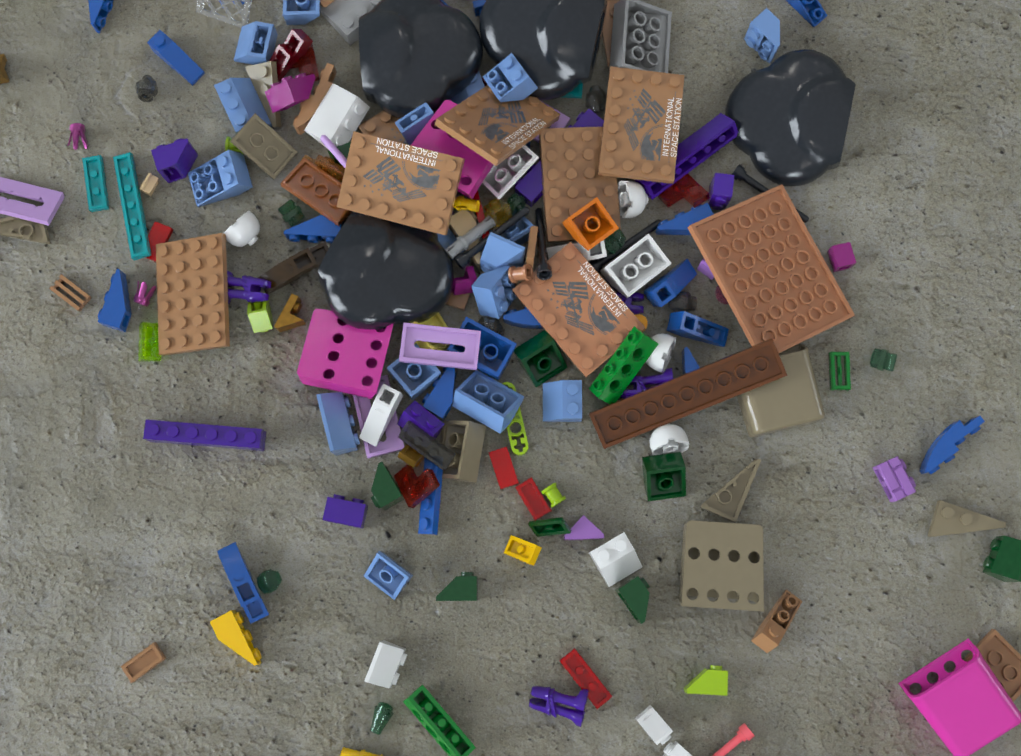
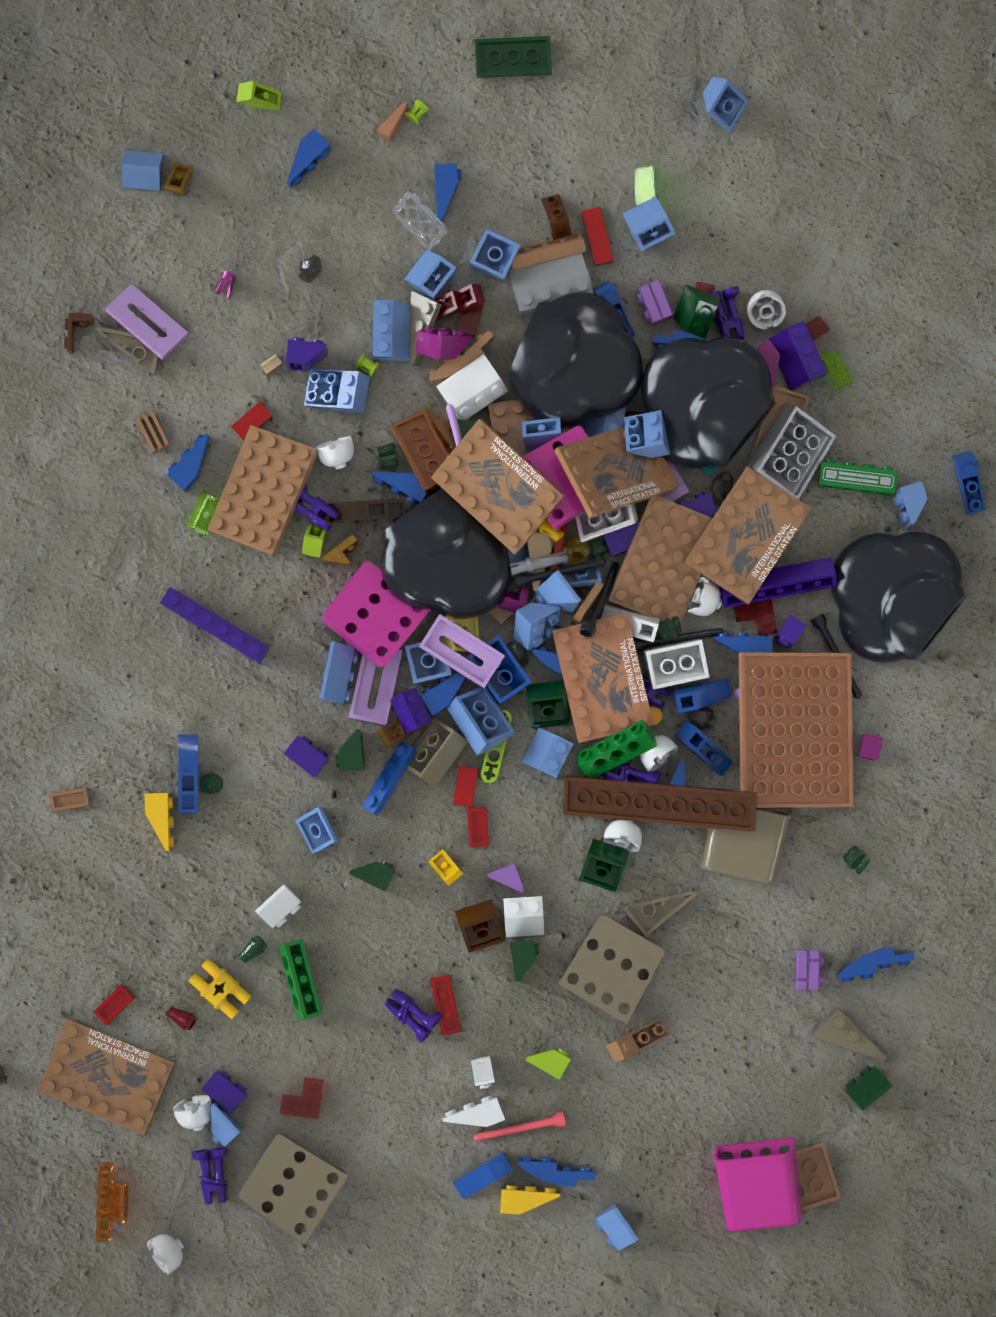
camera: 25 degrees right, 5 degrees up
(95, 183) = (221, 337): teal tile -> none
(132, 206) = (245, 376): teal tile -> none
(140, 298) = (214, 467): flat silver piece -> none
(175, 57) = (351, 251): blue slope -> none
(264, 146) = (392, 381): dark tan tile -> none
(380, 414) = (379, 685): white slope -> none
(415, 488) = (377, 766): clear red plate -> none
(426, 445) = (406, 733): clear smoke tile -> none
(520, 273) = (566, 620): nougat bush -> none
(549, 527) = (479, 859): dark green slope -> none
(553, 495) = (497, 832): lime bush -> none
(580, 588) = (480, 925): none -> reddish brown slope
(590, 224) = (652, 606): orange slope -> none
(707, 39) = (857, 478): none -> green brick
(839, 386) = (805, 864): green tile -> none

